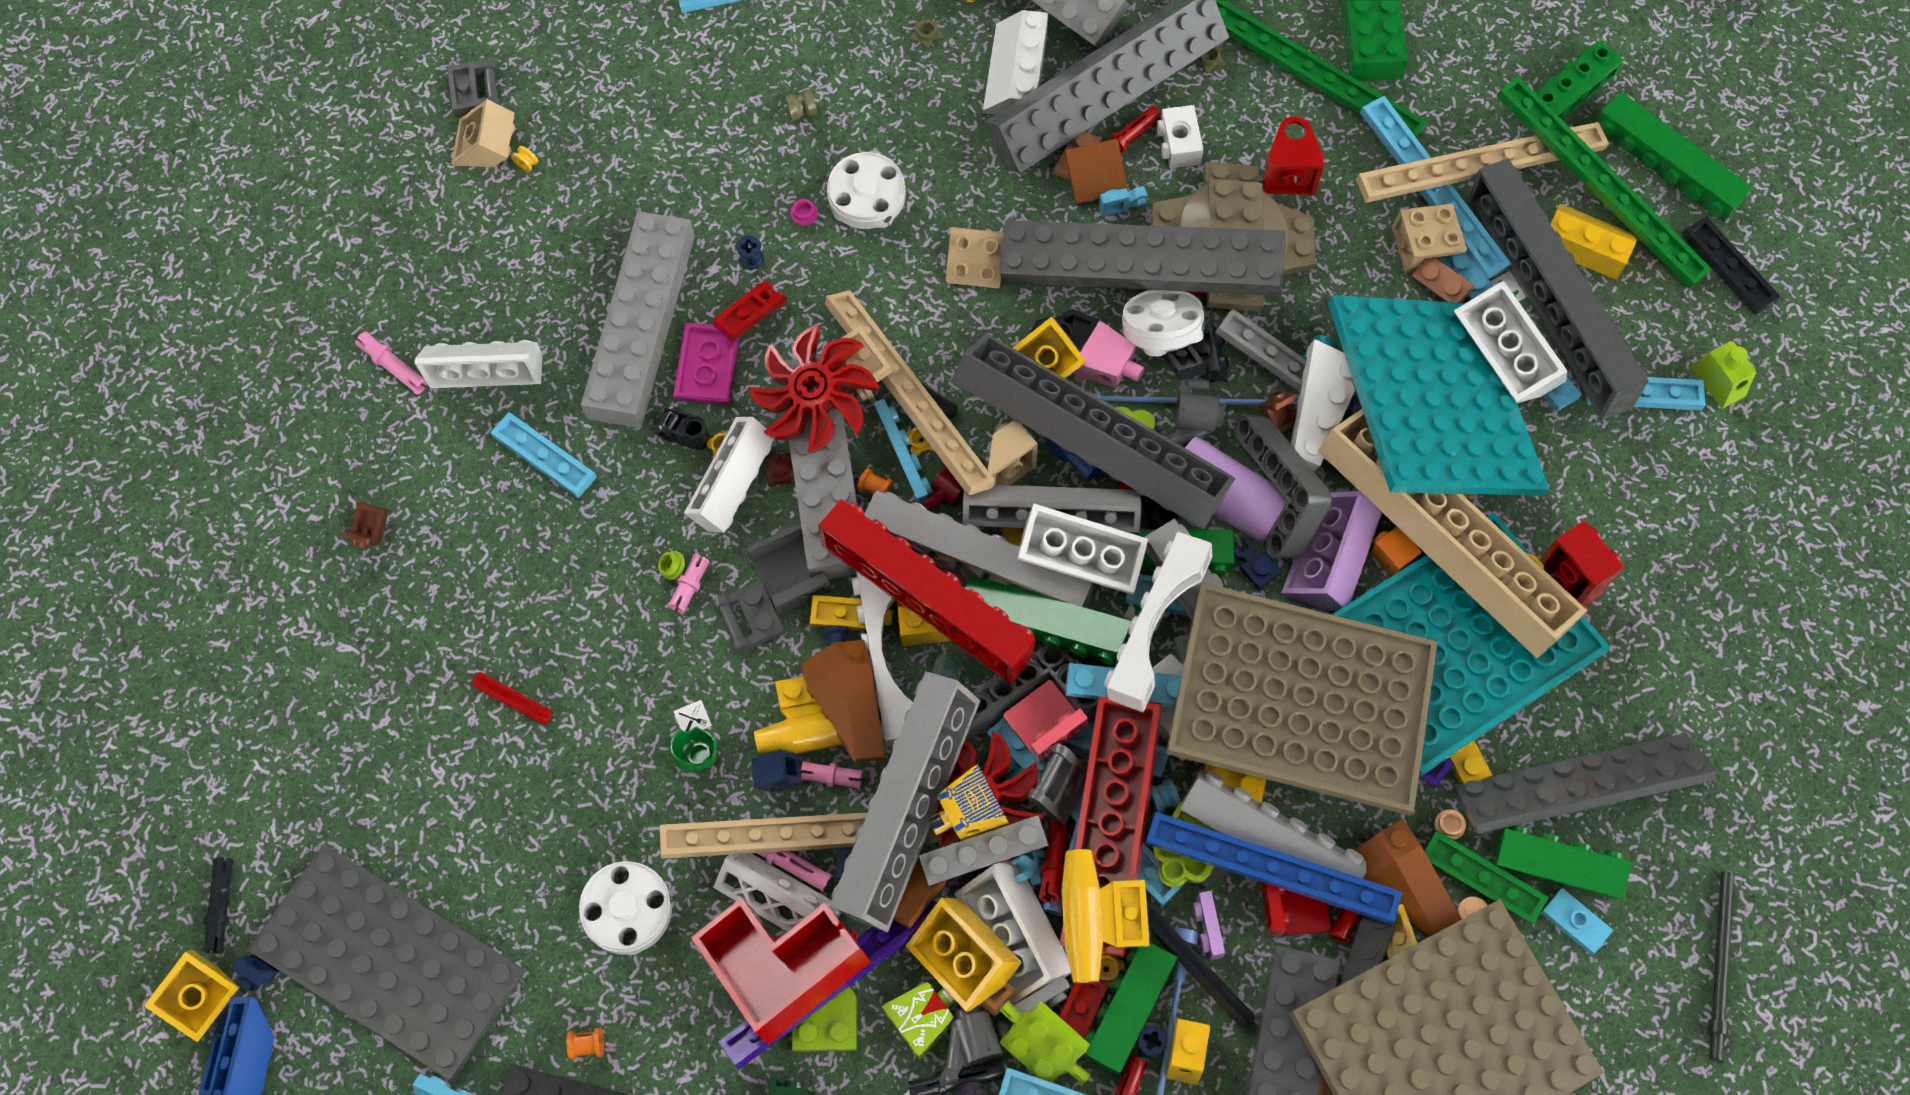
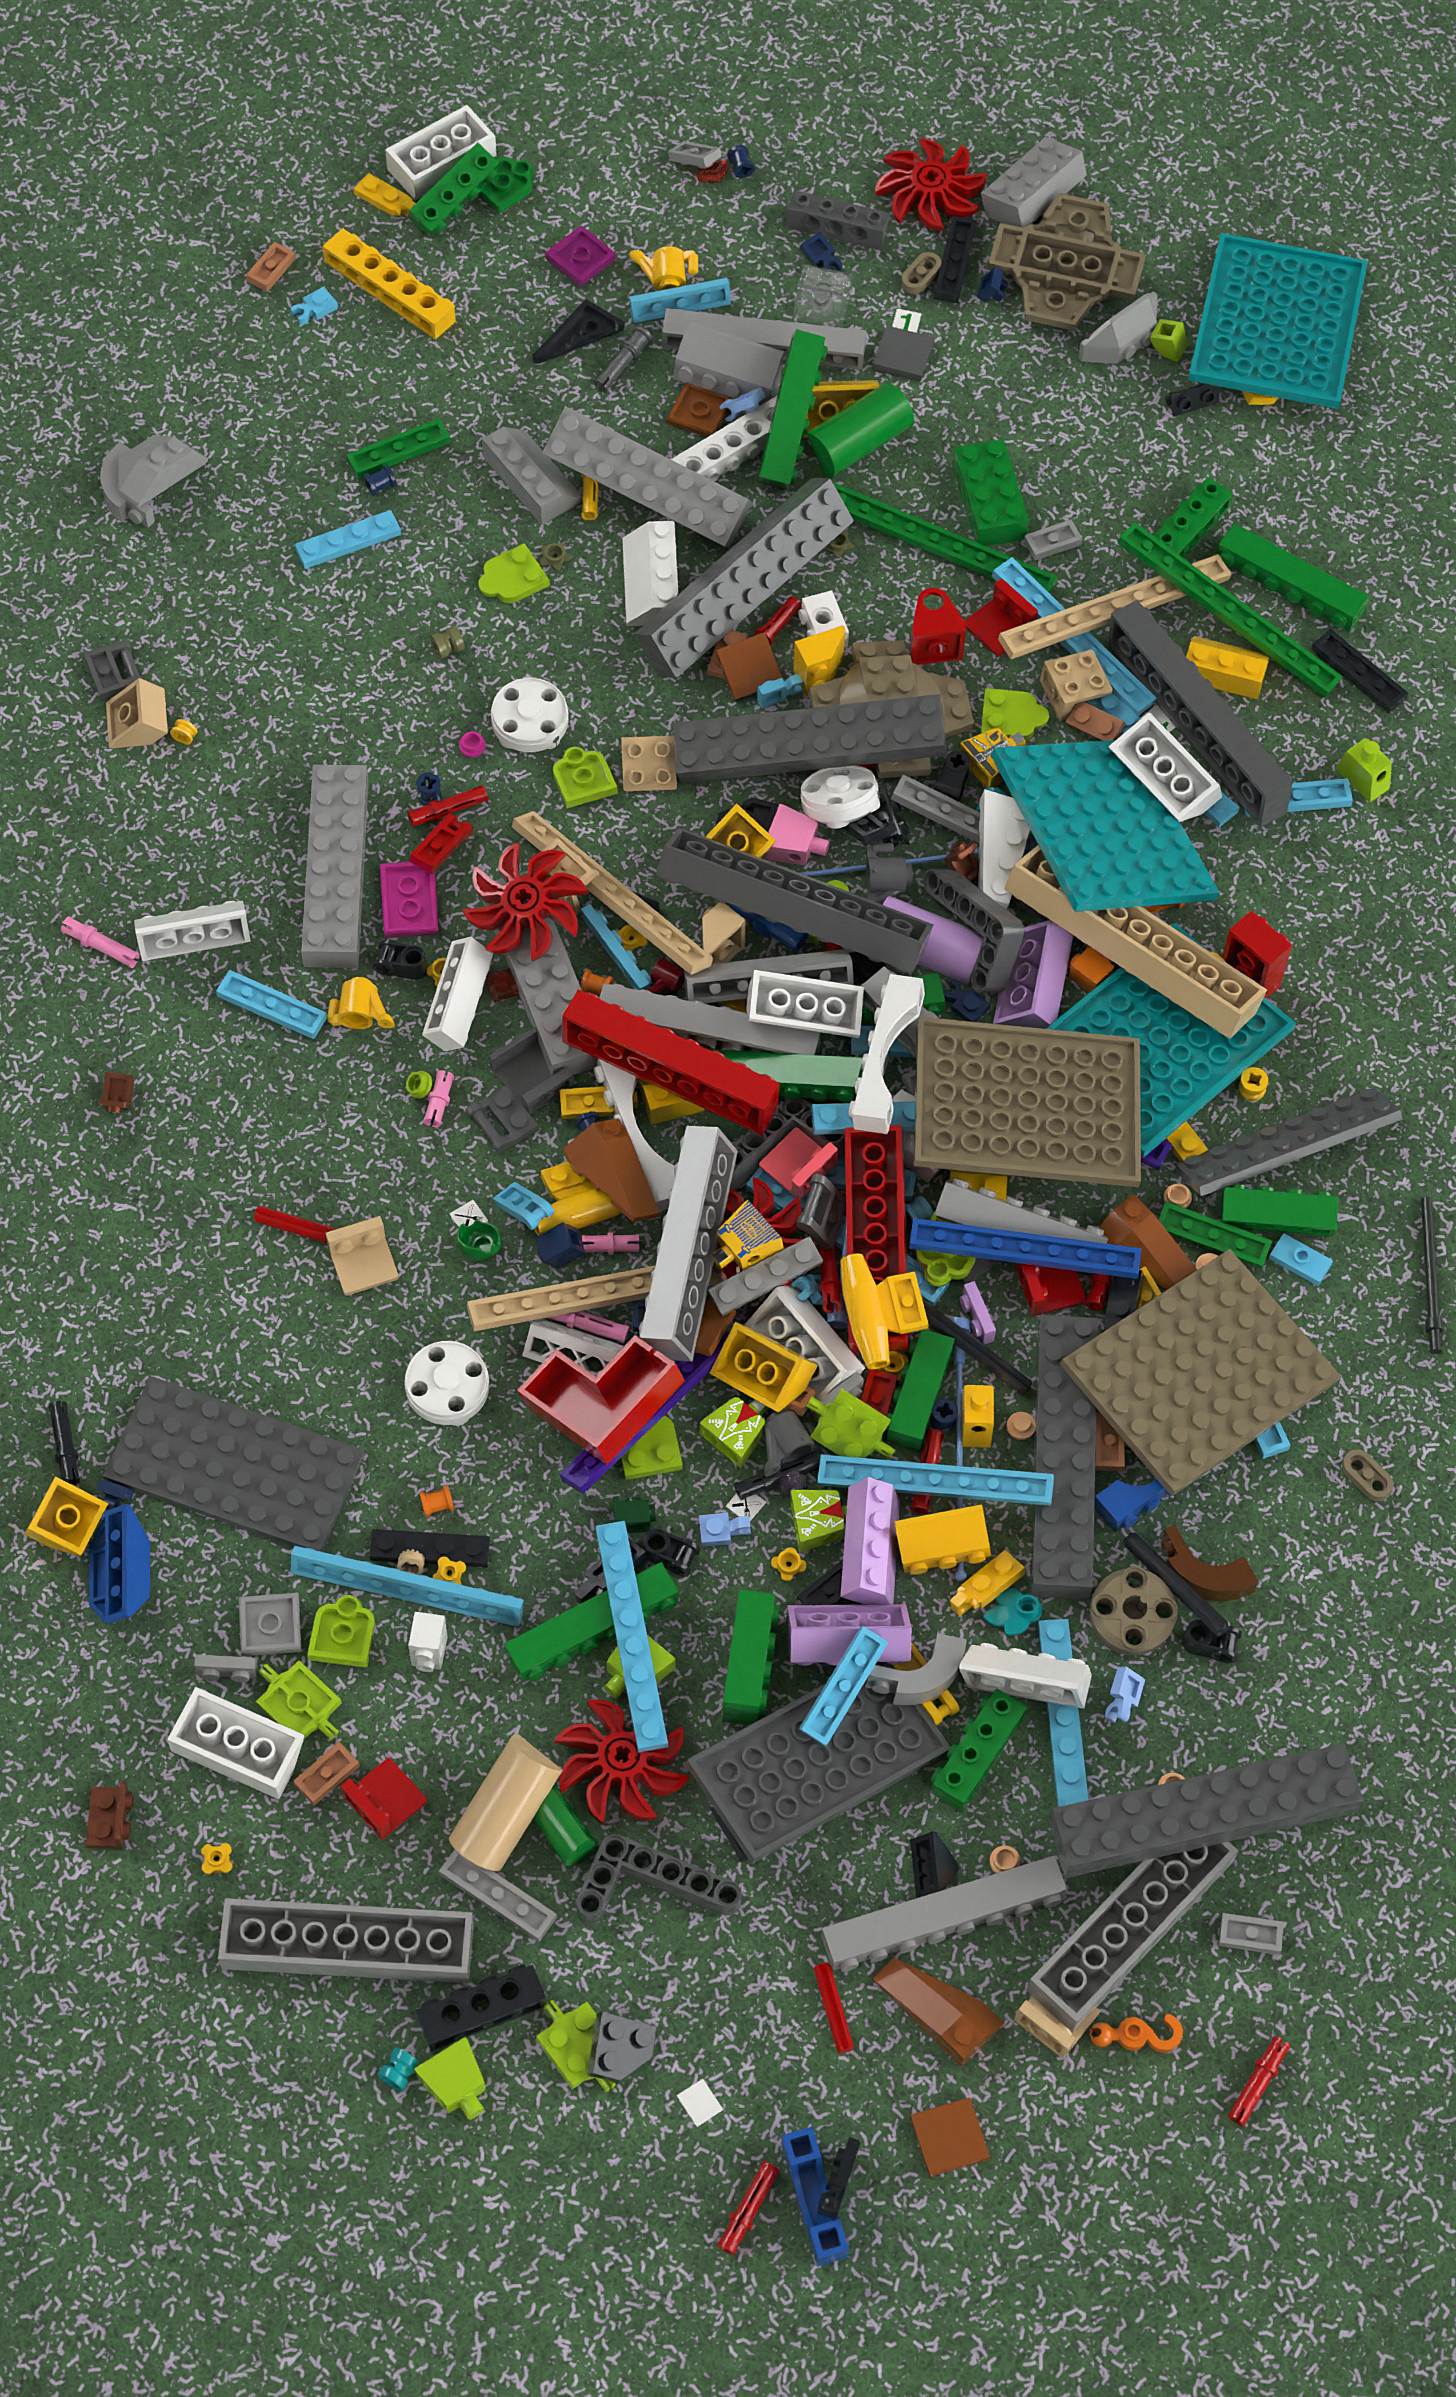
camera: 15 degrees left, 5 degrees down
(570, 747) = (361, 1256): none -> tan bracket
(628, 471) = (358, 1006): none -> yellow piece
(746, 720) = (523, 1205): none -> medium azure plate
(765, 272) = (452, 804): none -> red pin
(880, 47) = (513, 575): none -> lime plate
(907, 262) = (583, 777): none -> lime plate
(1168, 172) = (819, 657): none -> yellow slope
(1234, 1067) = (1021, 1425): none -> light nougat plate
(1281, 320) = (953, 779): none -> black piece
(1315, 294) = (979, 753): none -> yellow torso
(1356, 260) = (1012, 712): none -> lime plate
(1362, 154) = (1002, 613): none -> red bracket
(1428, 84) = (1053, 540): none -> light grey plate
(1548, 713) = (1253, 1091): none -> yellow wheel

